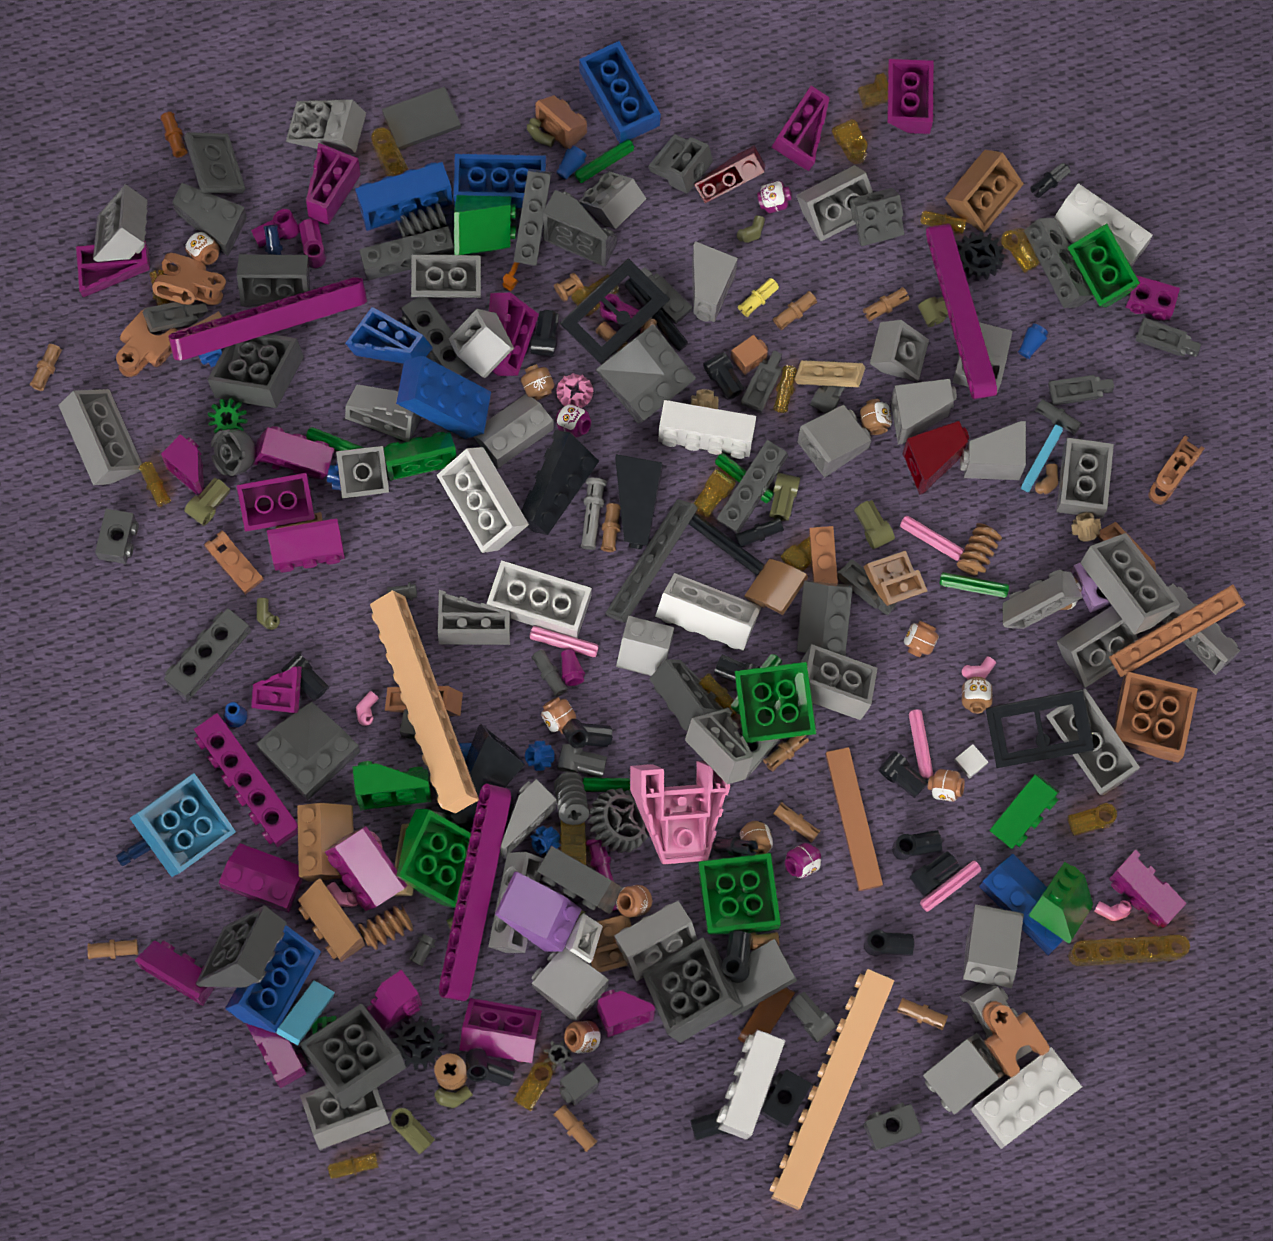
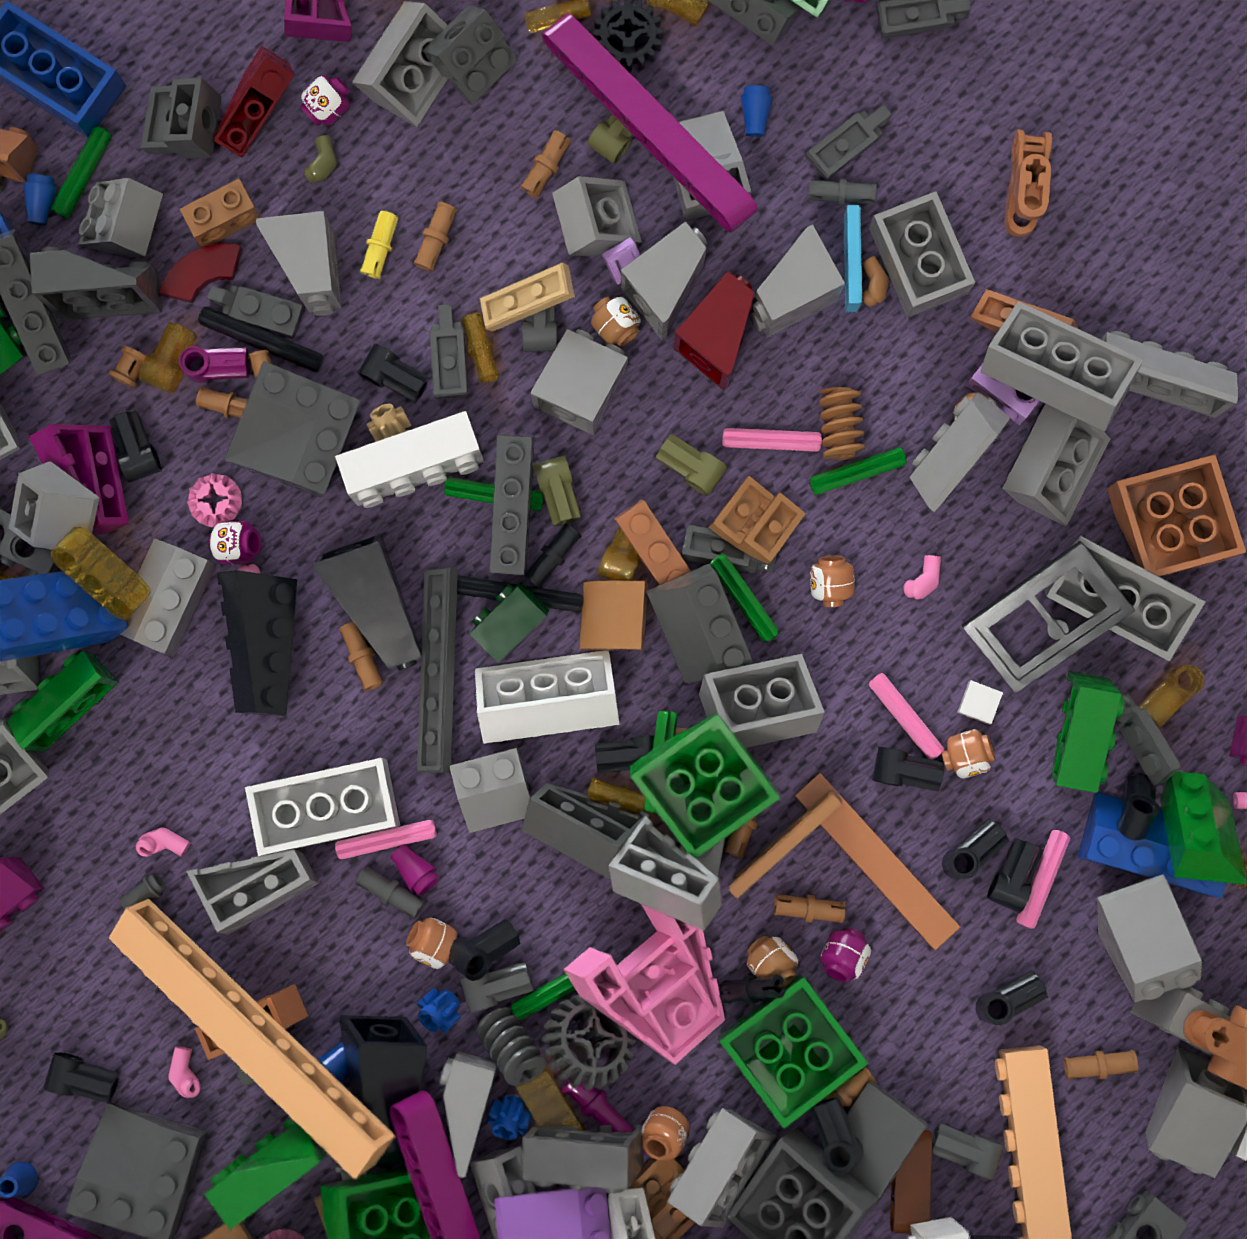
camera: 25 degrees left, 10 degrees up
(278, 692) = (57, 1122): magenta wing -> none
(430, 567) = (159, 840): none -> bright pink arm
(482, 499) = (175, 717): white brick -> none
(488, 392) = (100, 573): none -> clear yellow beam
(509, 281) = (46, 400): orange hand -> none
(537, 382) = (159, 517): medium nougat head -> none
(593, 503) = (321, 636): light grey pin -> none
(630, 327) = (237, 377): black door -> none
(644, 254) = (200, 269): none -> dark red tile
(674, 228) = (220, 213): none -> medium nougat brick
(711, 554) = (508, 621): none -> dark green piece
(716, 489) = (467, 527): clear yellow piece -> none
(749, 354) = (410, 327): nougat brick -> none
(804, 770) = (784, 843): none -> medium nougat tile
(861, 619) = (744, 598): none -> green axle
(899, 379) = (620, 257): none -> lavender tile
(977, 694) = (941, 614): head -> none
(1031, 870) = (1138, 807): none -> black piece
(1059, 835) = (1147, 742): none -> dark grey hinge
(1086, 526) = (956, 317): tan gear -> none
(1177, 630) = (1155, 393): nougat tile -> none

